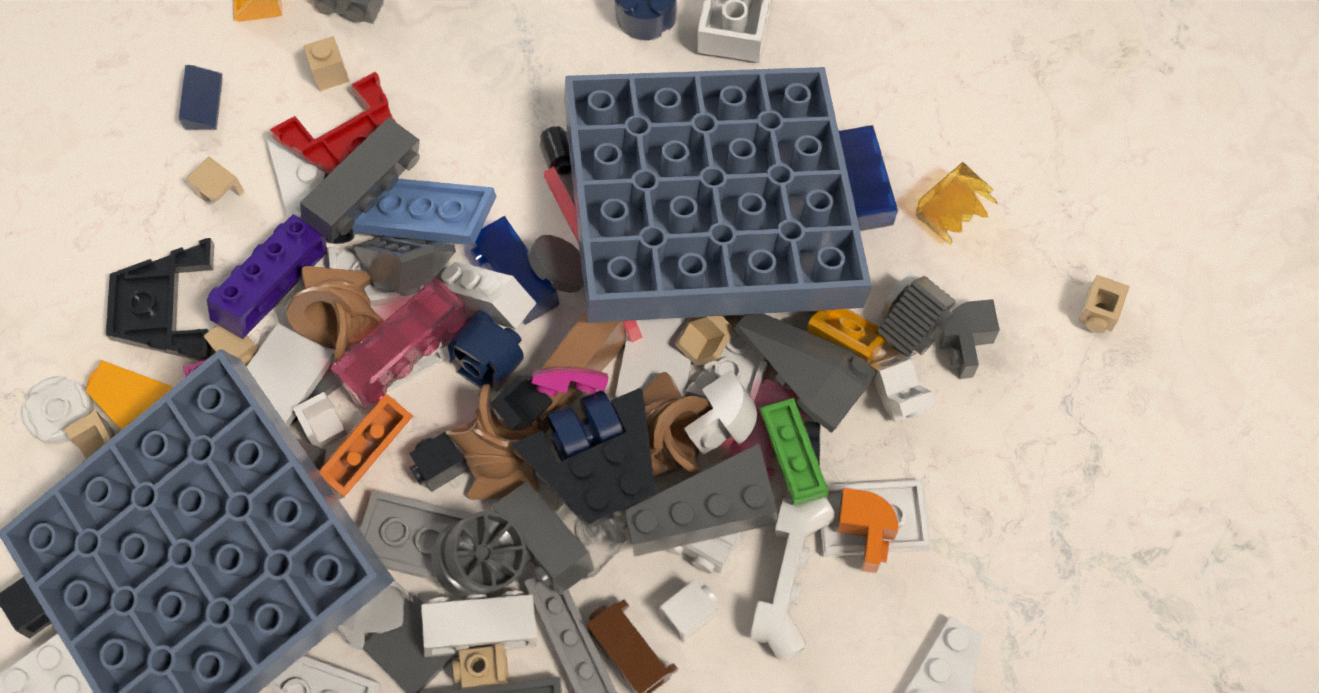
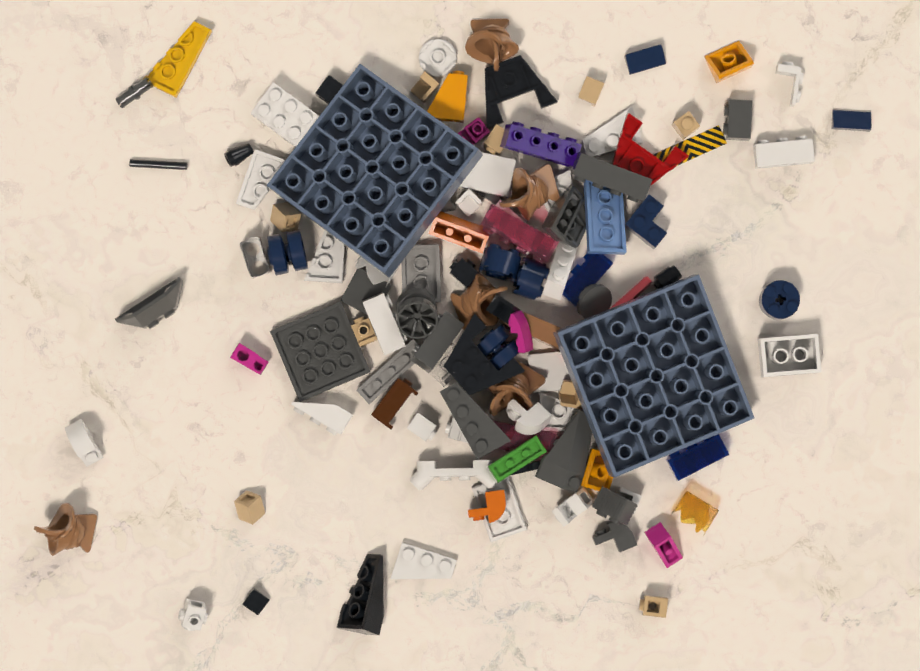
camera: 70 degrees right, 20 degrees up
(69, 311) = (490, 41): none -> medium nougat helmet
(365, 57) = (698, 144): none -> sticker
(440, 392) = (500, 263): none -> dark blue brick
(460, 159) = (642, 222): none -> dark blue brick
(998, 264) = (663, 544): none -> dark pink slope

